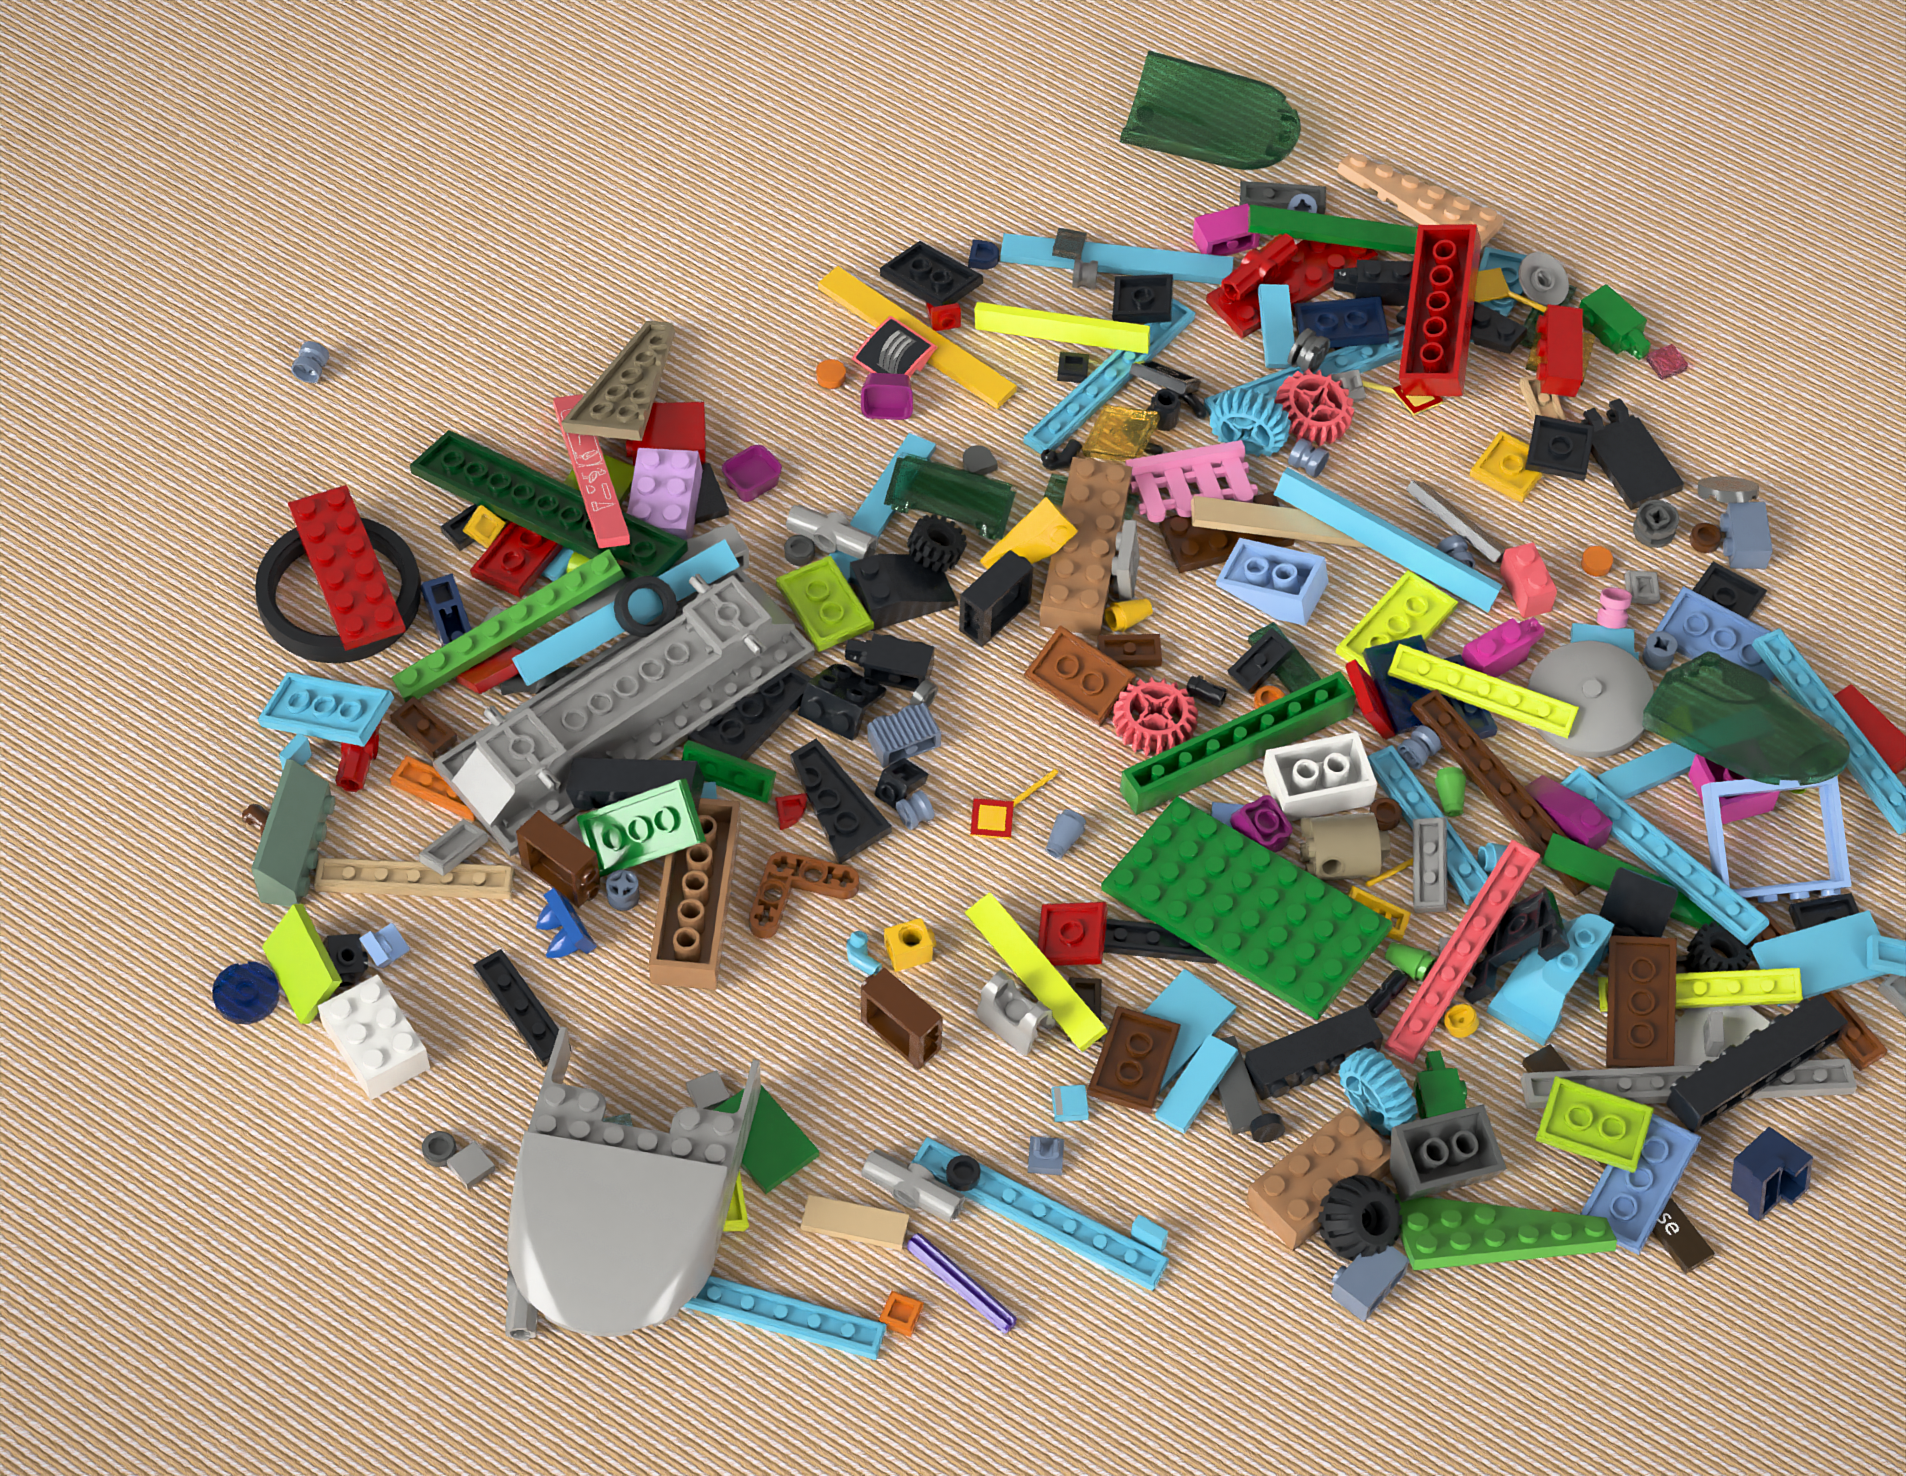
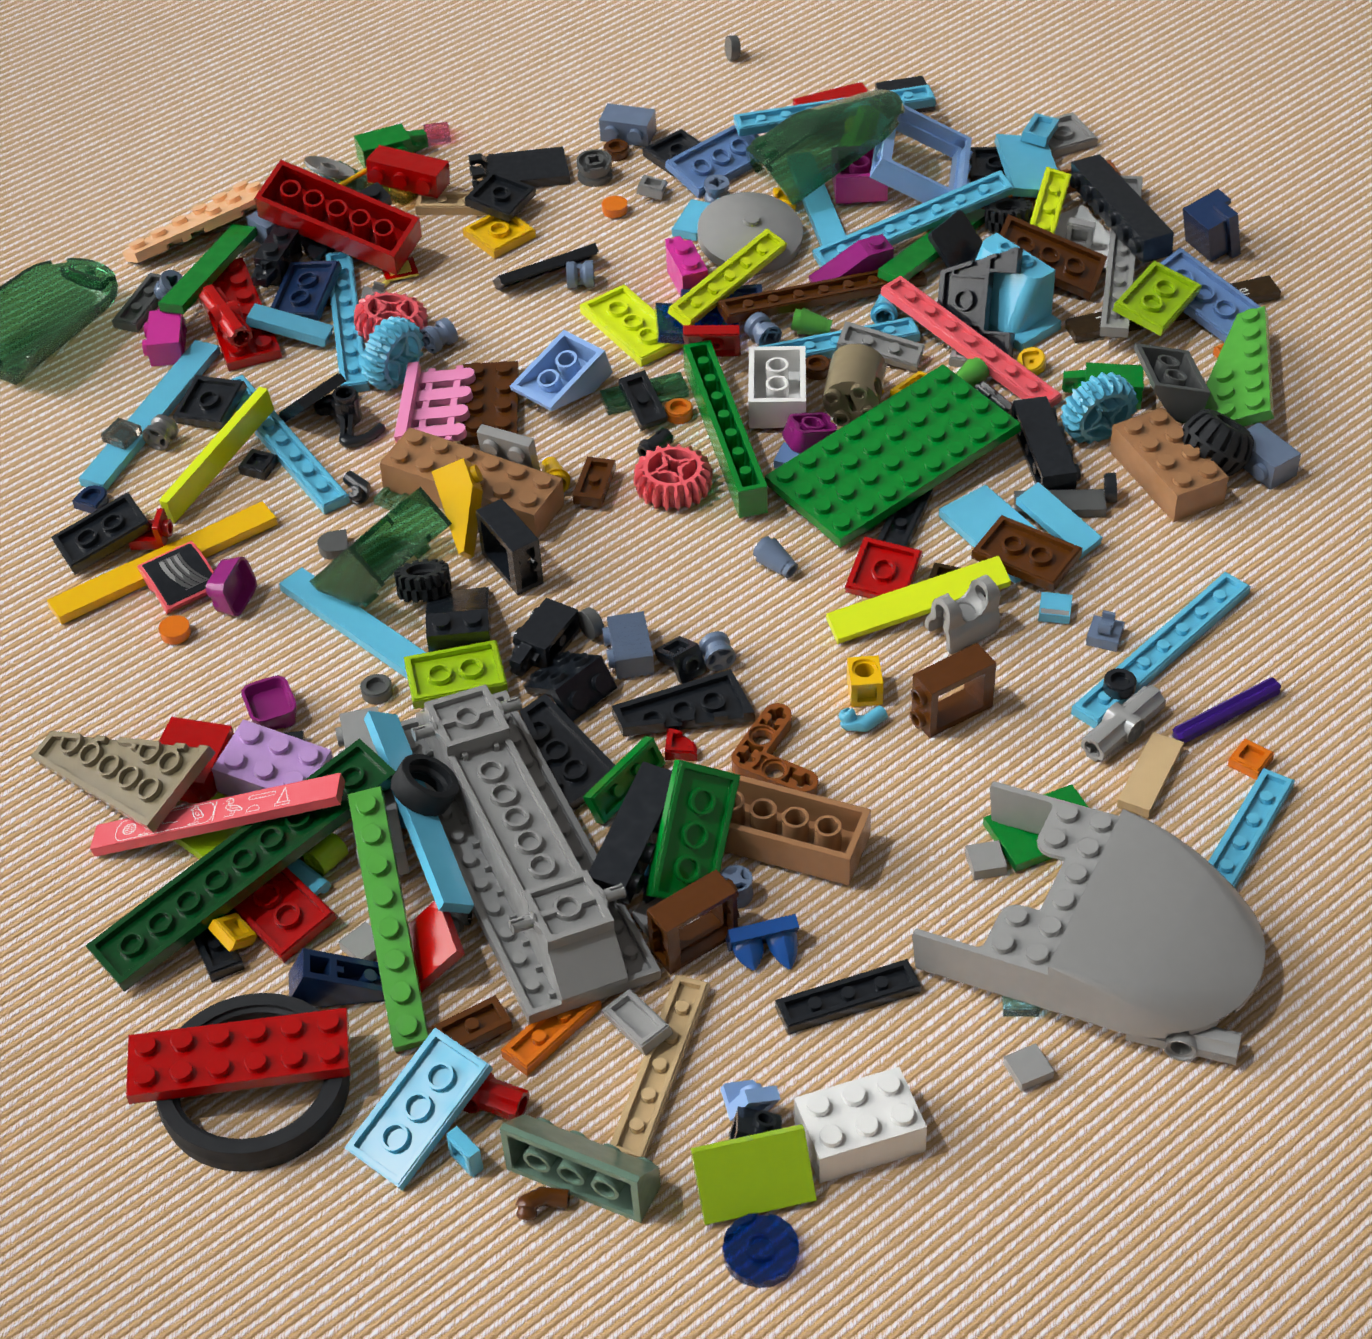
camera: 70 degrees left, 10 degrees down
(438, 1148) = (1002, 1093): dark grey tile -> none
(831, 532) = (378, 650): light grey piece -> none
(995, 817) = (733, 605): piece -> none
(1079, 675) = (610, 516): dark orange tile -> none
(1120, 433) = (356, 440): clear yellow tile -> none
(1149, 1234) = (1202, 576): medium azure tile -> none
(1265, 520) = (503, 359): tan tile -> none
(1308, 351) = (335, 304): dark grey wheel -> none
(1388, 539) = (551, 301): medium azure tile -> none
(1528, 580) = (623, 239): coral brick -> none
(1614, 607) = (670, 200): bright pink wheel -> none
(1728, 489) = (581, 122): dark grey tile -> none

